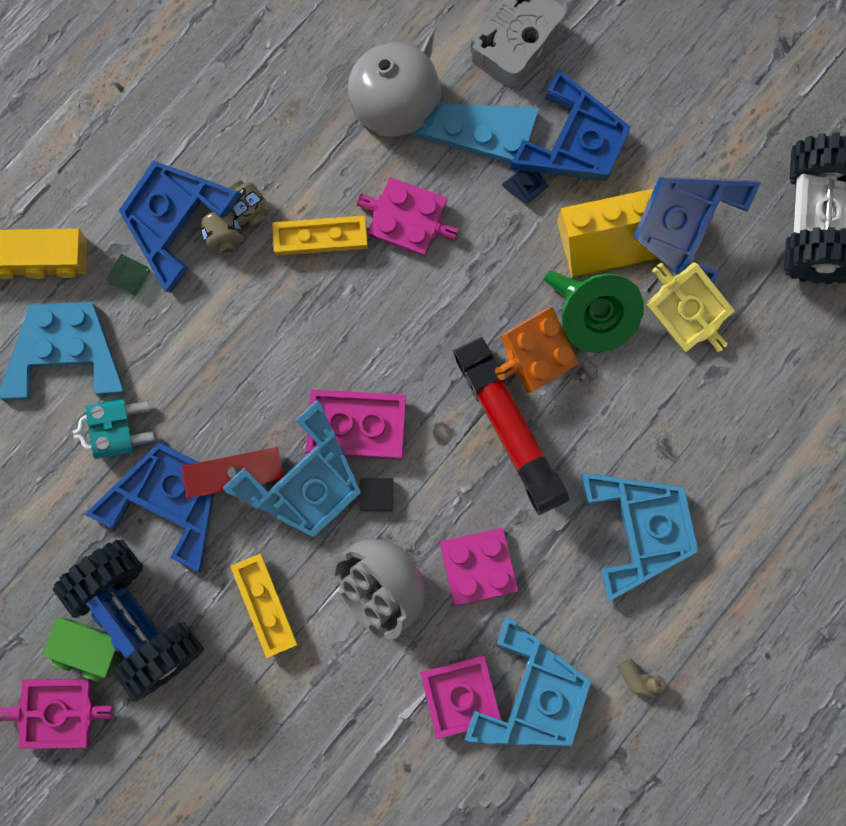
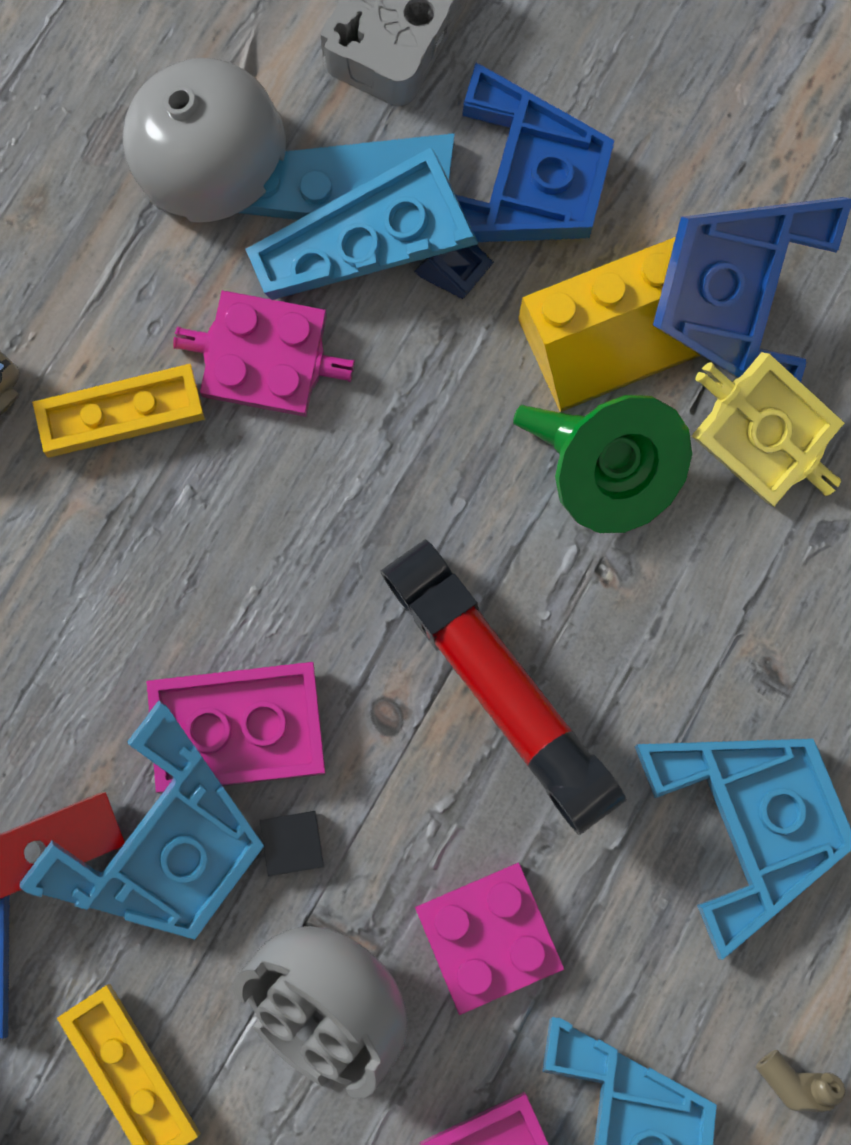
camera: 15 degrees left, 0 degrees up
(481, 155) = (374, 227): none -> dark azure wing
(537, 351) = (524, 548): orange plate -> none

